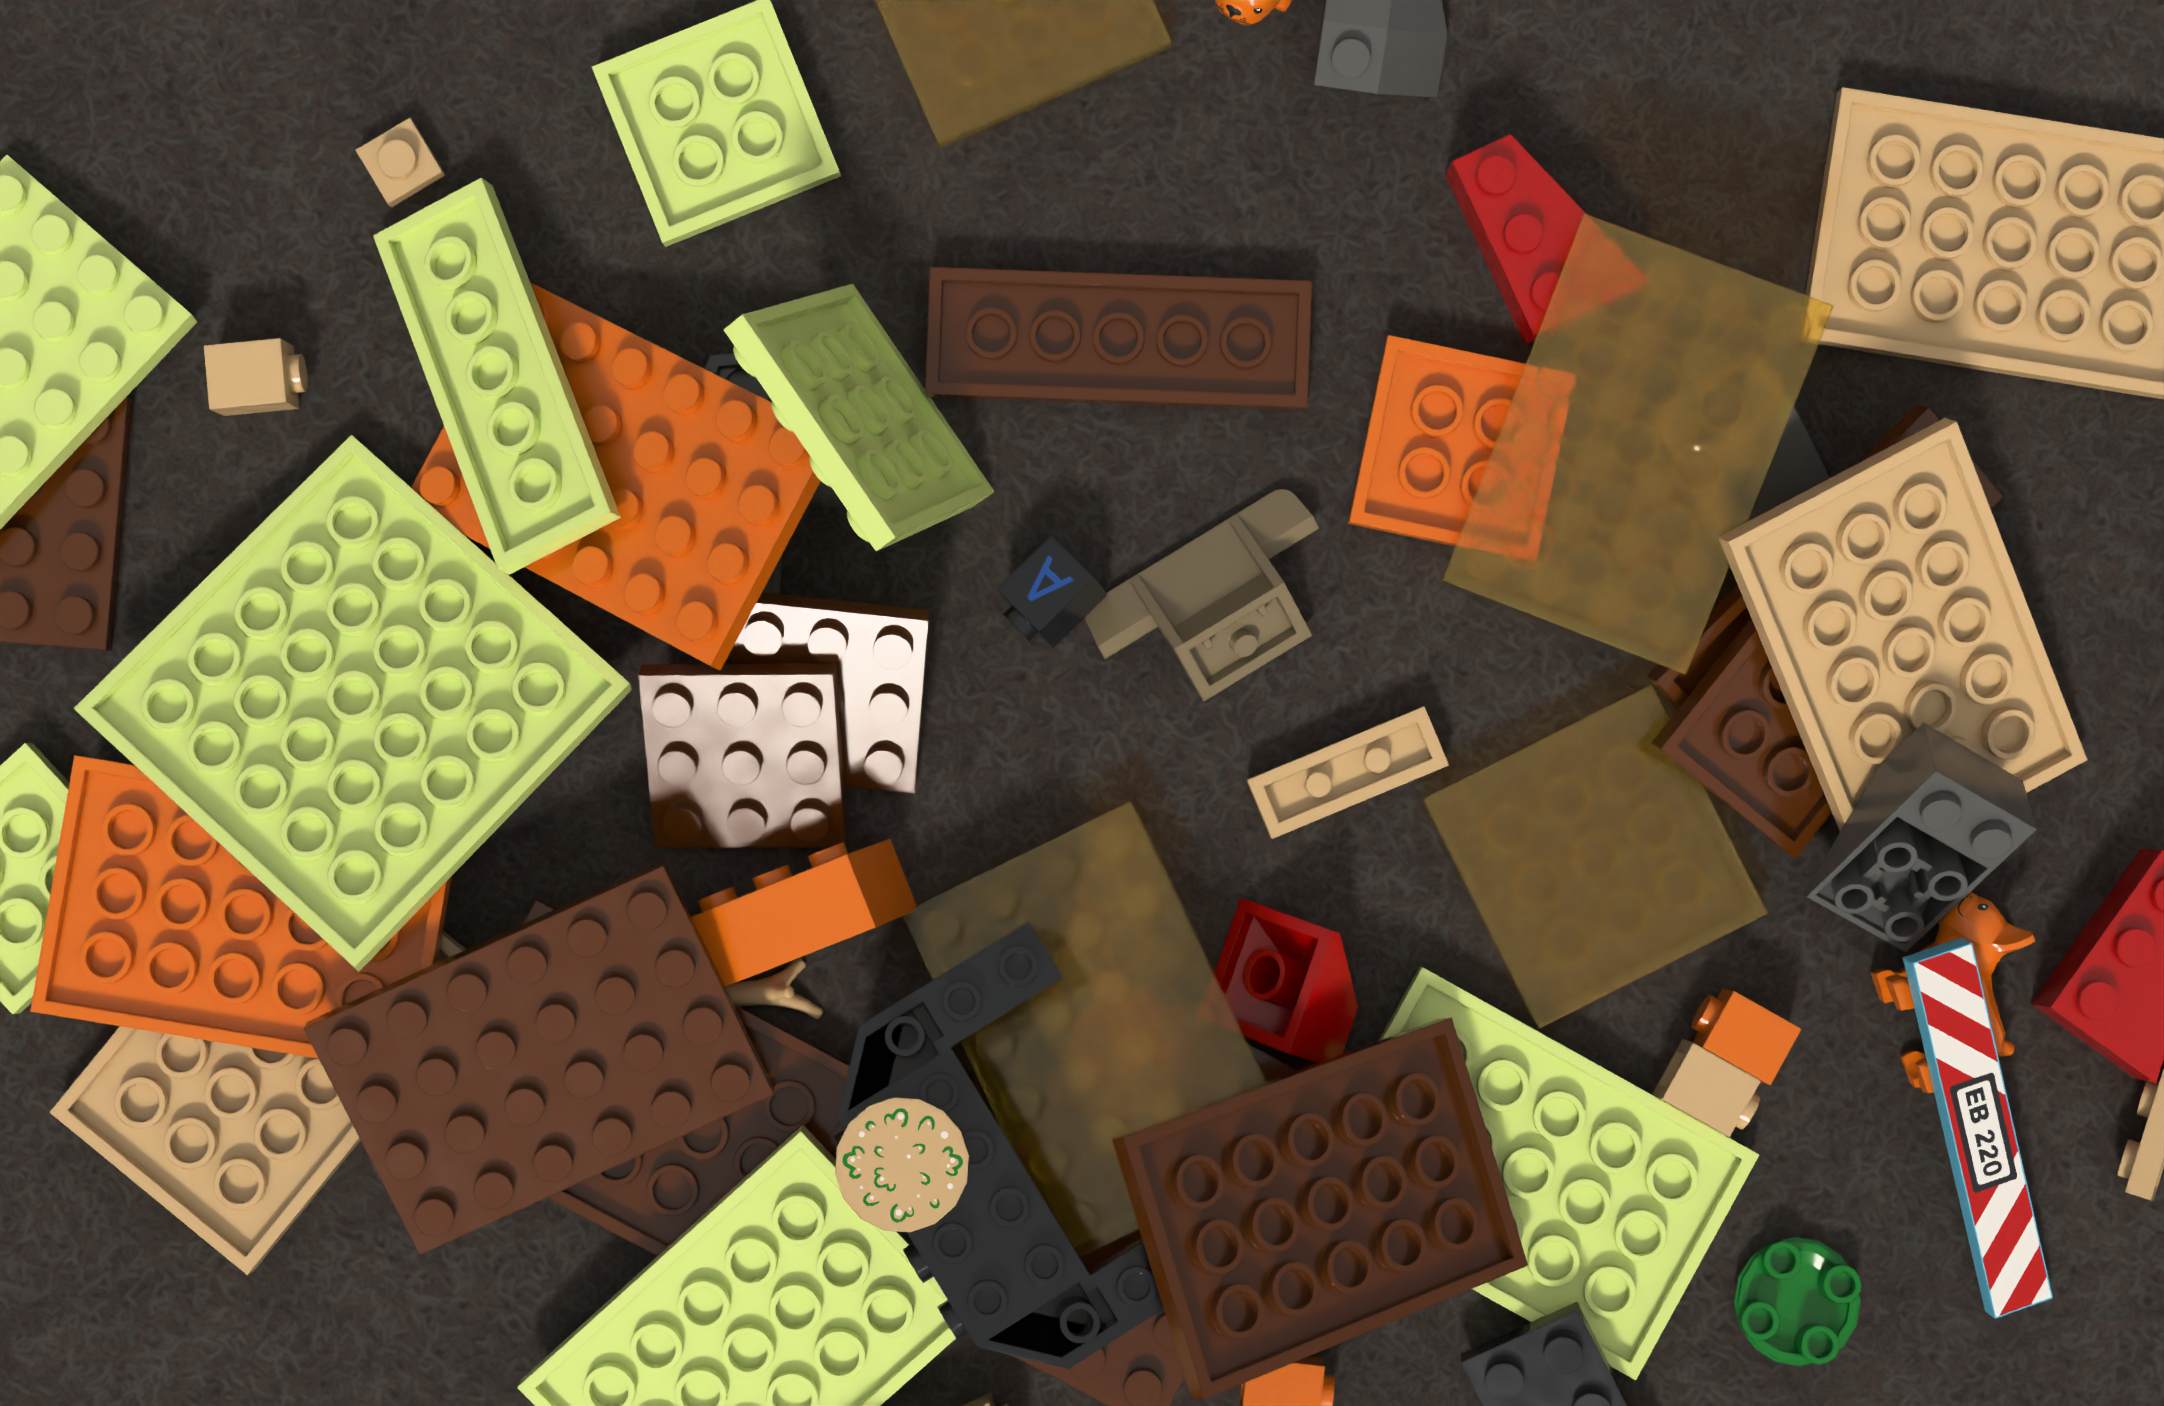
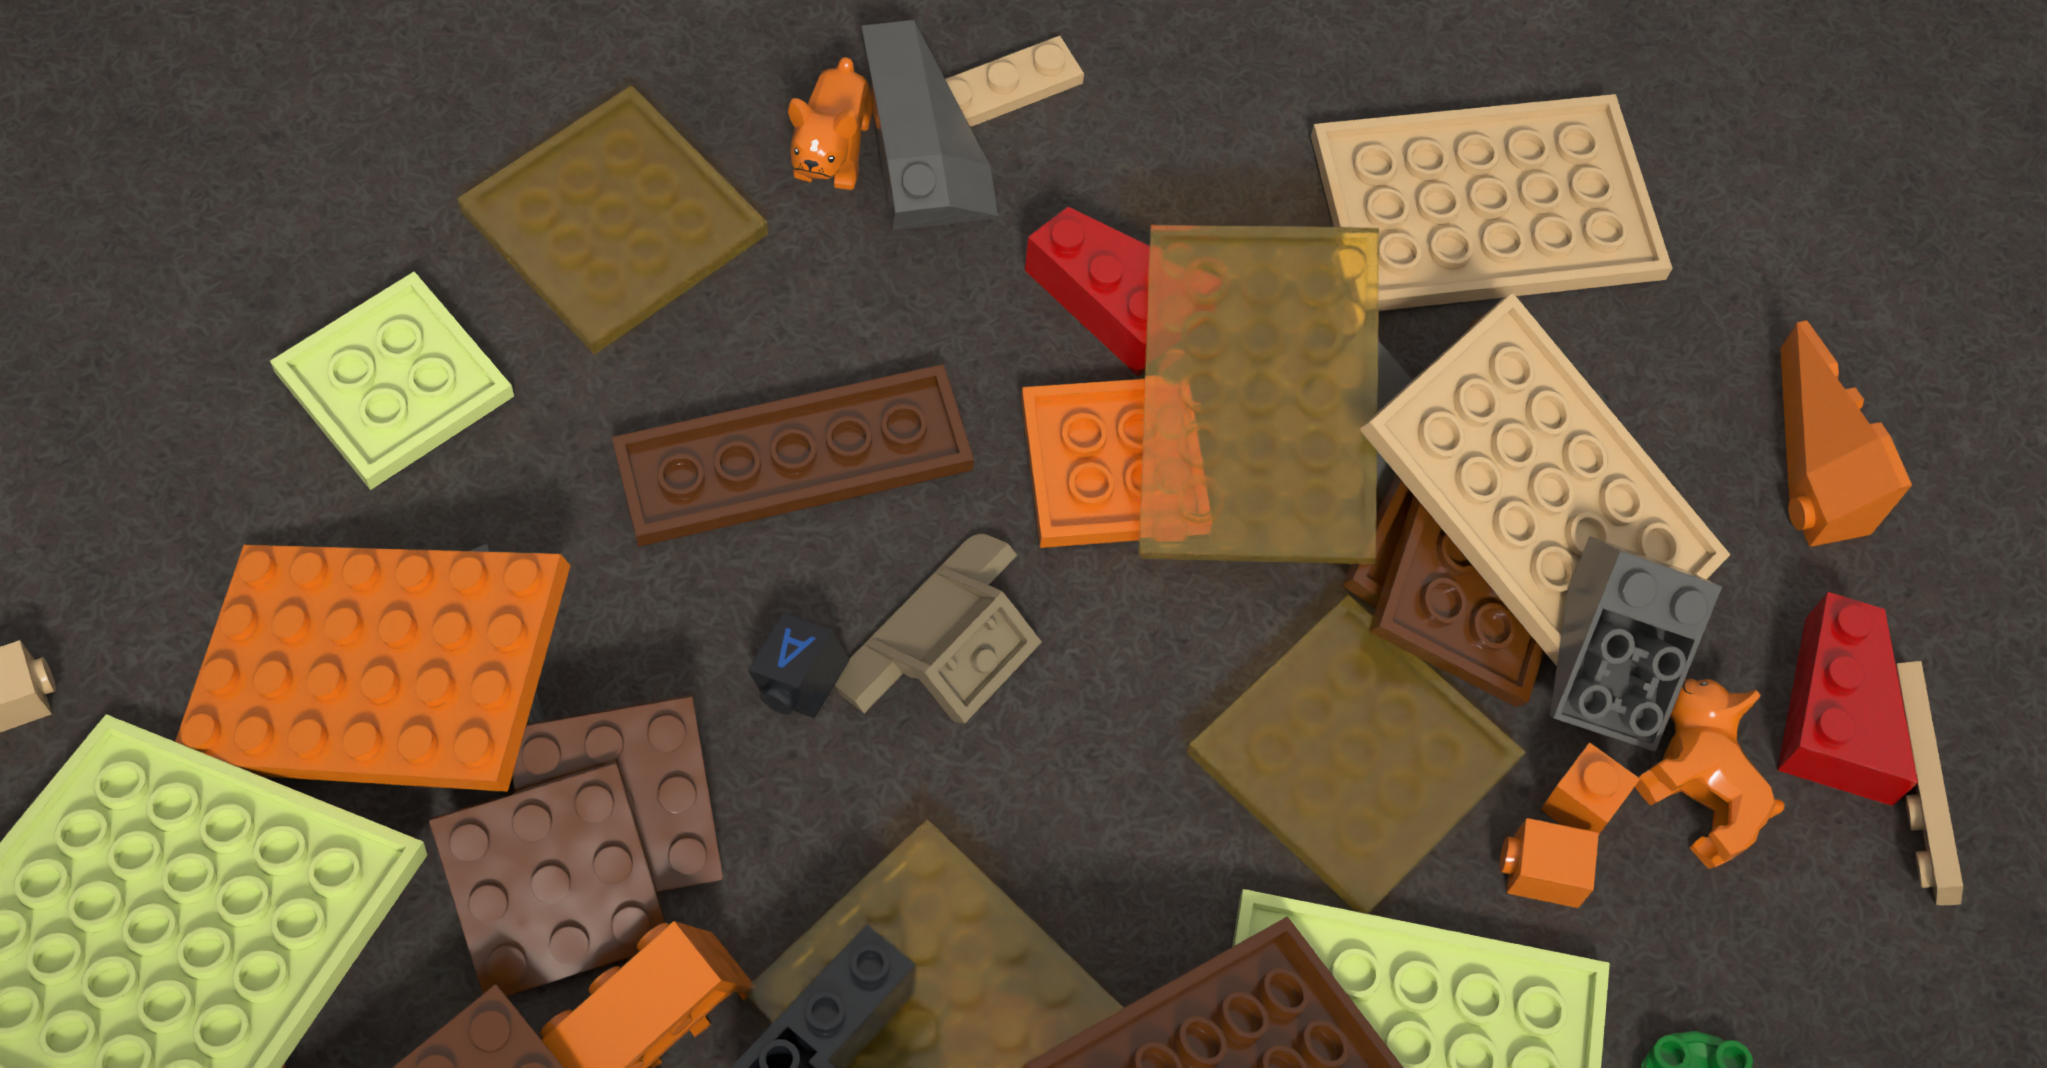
camera: 25 degrees left, 25 degrees down
(400, 162) = (110, 484): tan plate -> none
(496, 377) = (237, 618): yellowish green plate -> none
(858, 414) = (576, 542): yellowish green plate -> none
(1287, 982) = (1126, 931): red slope -> none
(1347, 772) = (1112, 746): tan plate -> none
(1708, 1089) = (1540, 915): tan brick -> none
(1815, 979) = (1590, 791): none -> orange brick
(1978, 1127) = (1790, 875): tile -> none

